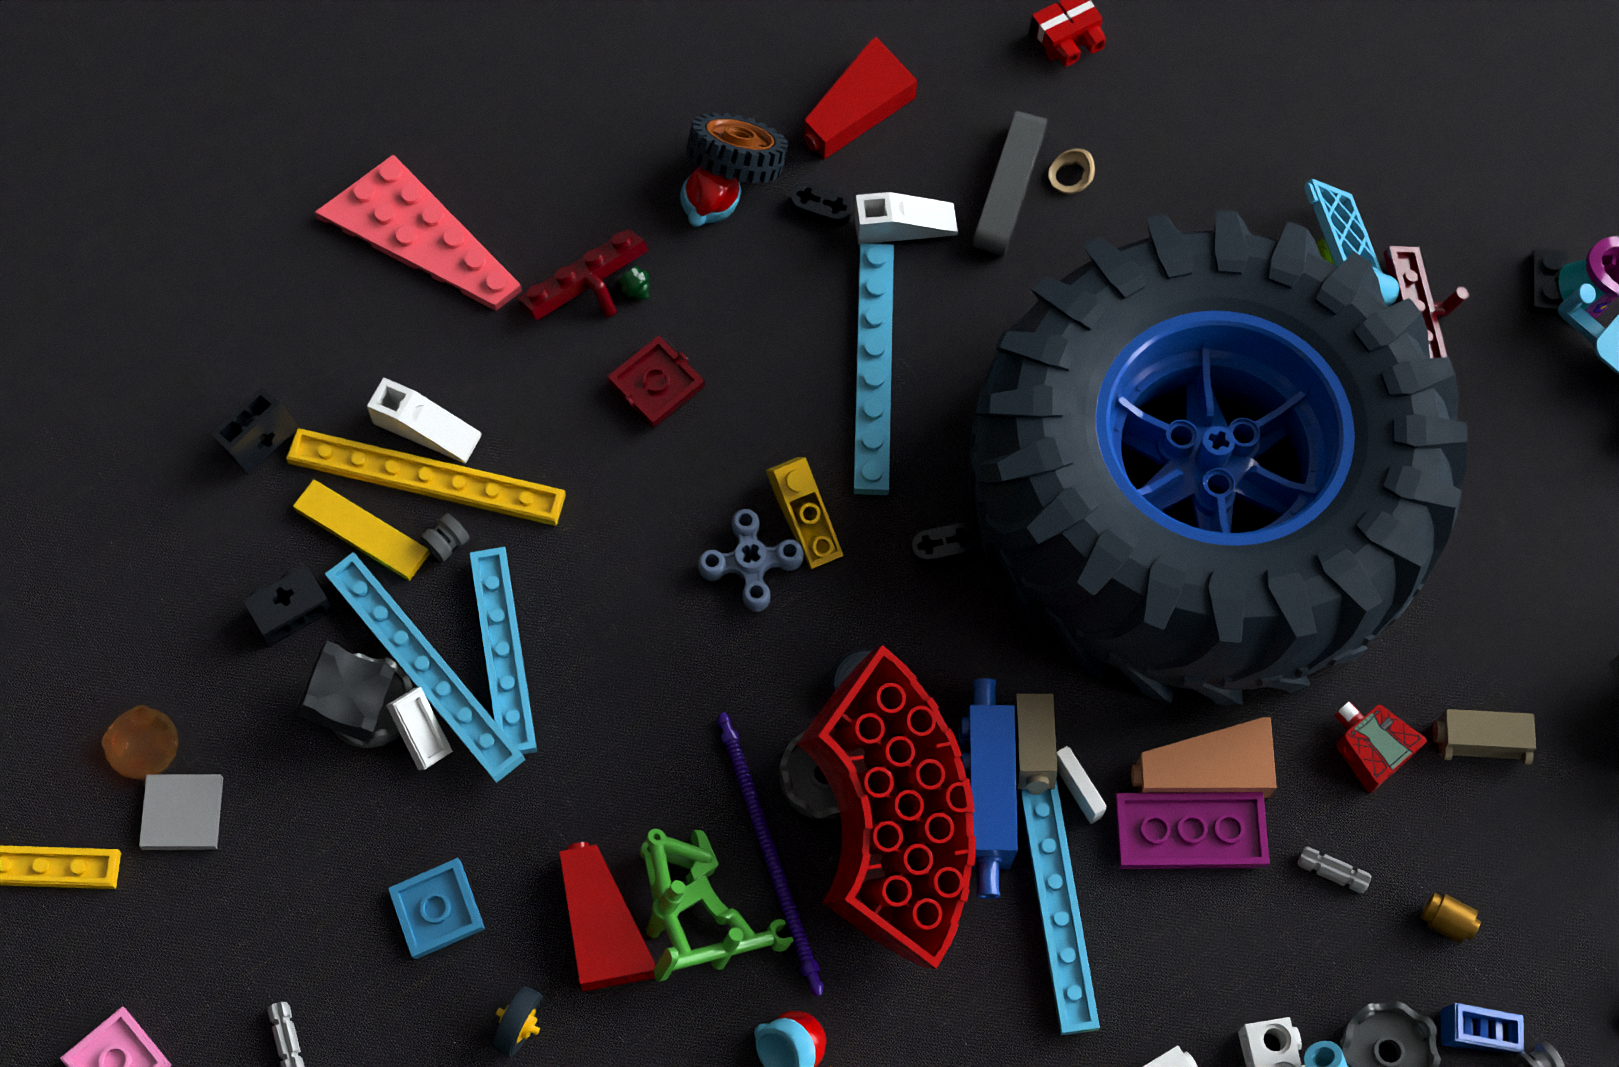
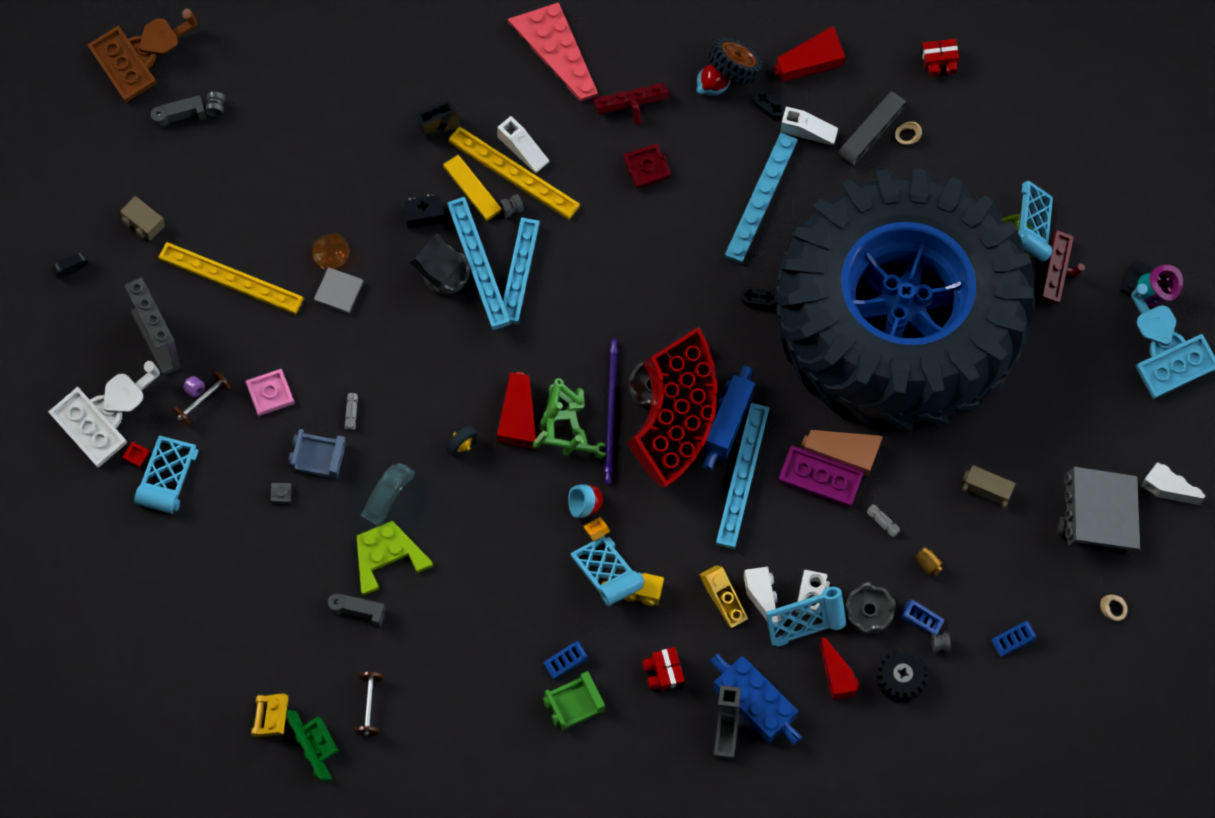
camera: 20 degrees right, 0 degrees up
(419, 728) = (465, 291): white tile -> none
(436, 908) = (442, 378): dark azure plate -> none
(635, 284) = (656, 112): dark green plate -> none
(754, 571) = (659, 265): sand blue gear -> none
(805, 511) = (695, 257): yellow slope -> none
(1035, 742) = (760, 405): dark tan brick -> none
(1080, 785) = (775, 435): white tile -> none
(1376, 743) = (931, 470): torso -> none

